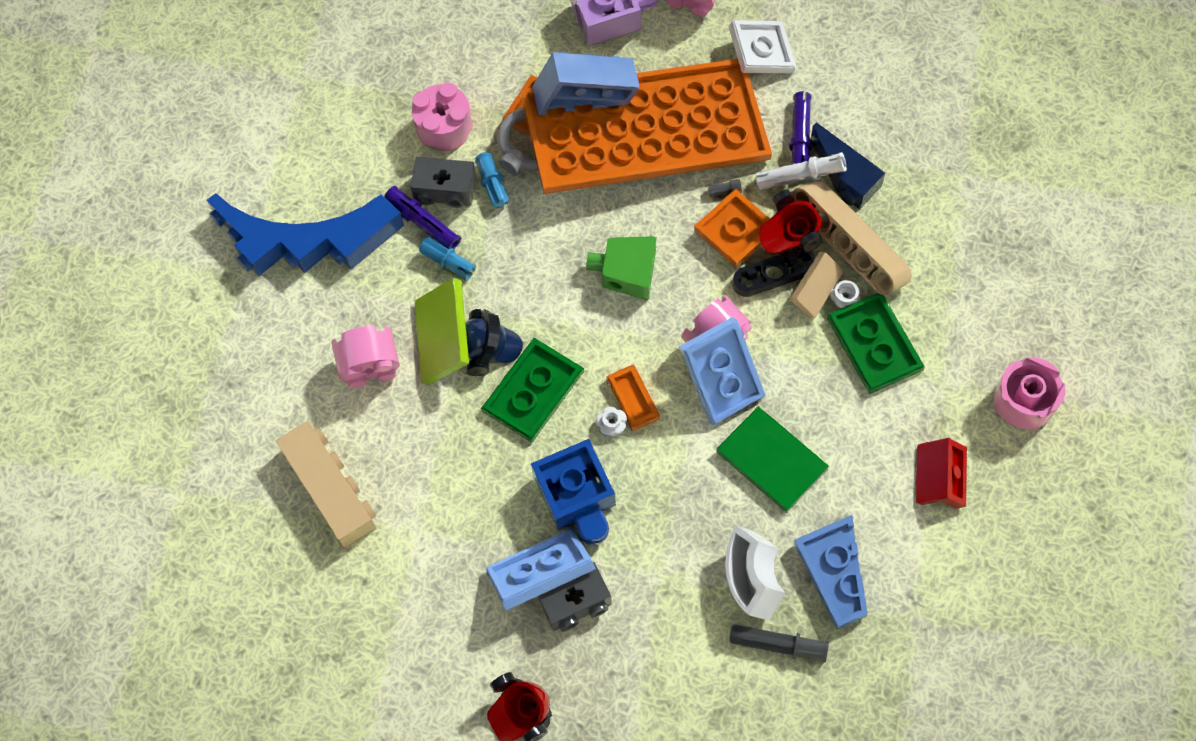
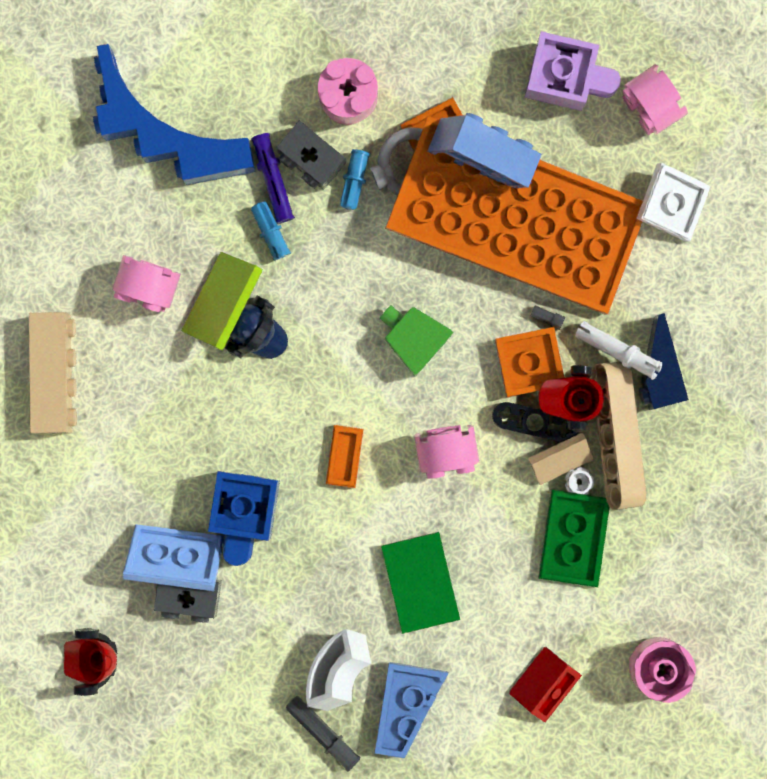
camera: 30 degrees right, 20 degrees up
(532, 390) = (268, 396): green tile -> none
(615, 428) = (305, 470): white plate -> none
(722, 370) = (425, 491): light blue tile -> none
(801, 142) = (648, 308): dark purple pin -> none

